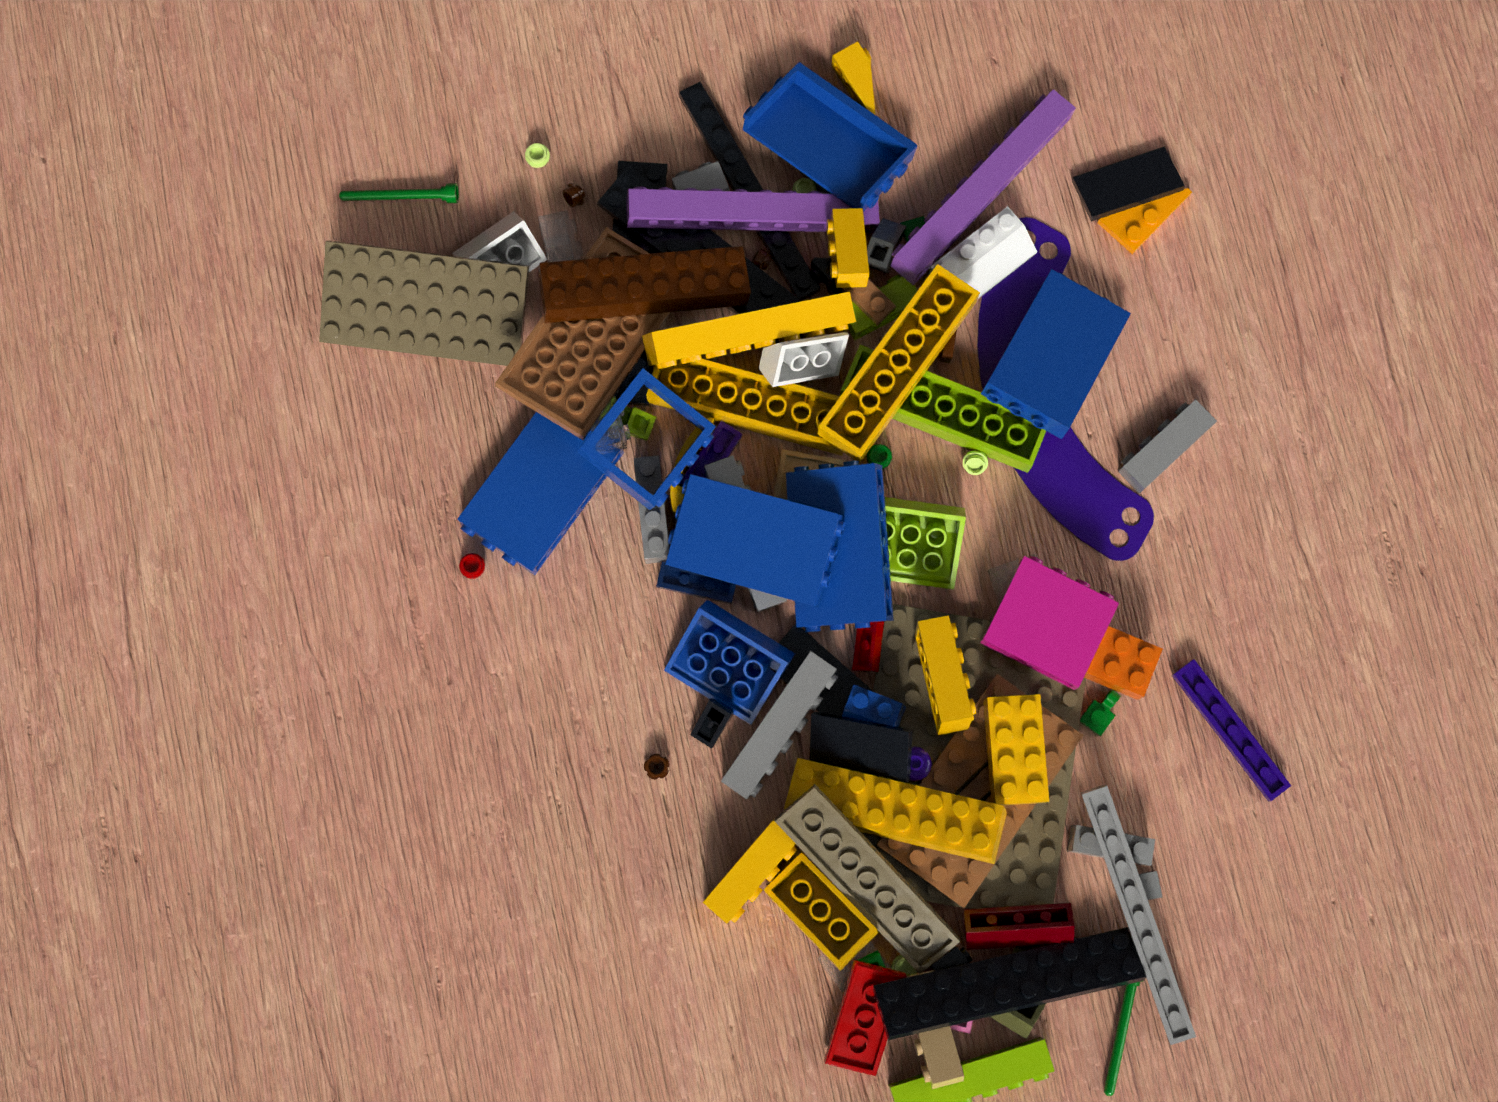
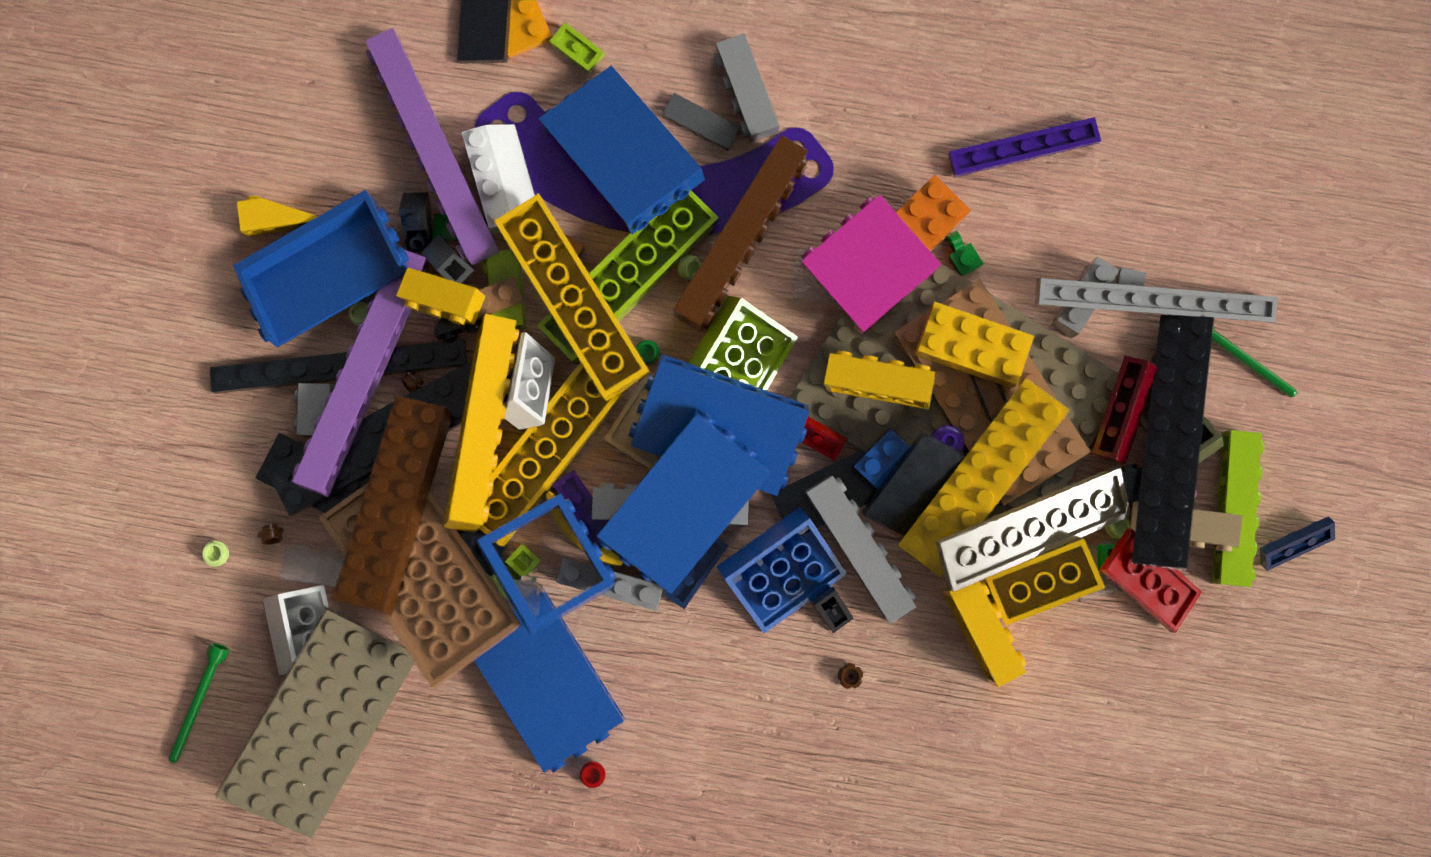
camera: 70 degrees left, 5 degrees up
(910, 201) = (416, 220): none -> black slope
(1026, 494) = (740, 234): none -> reddish brown brick
(1116, 418) = (701, 121): none -> dark grey tile
(1133, 278) = (577, 48): none -> lime plate

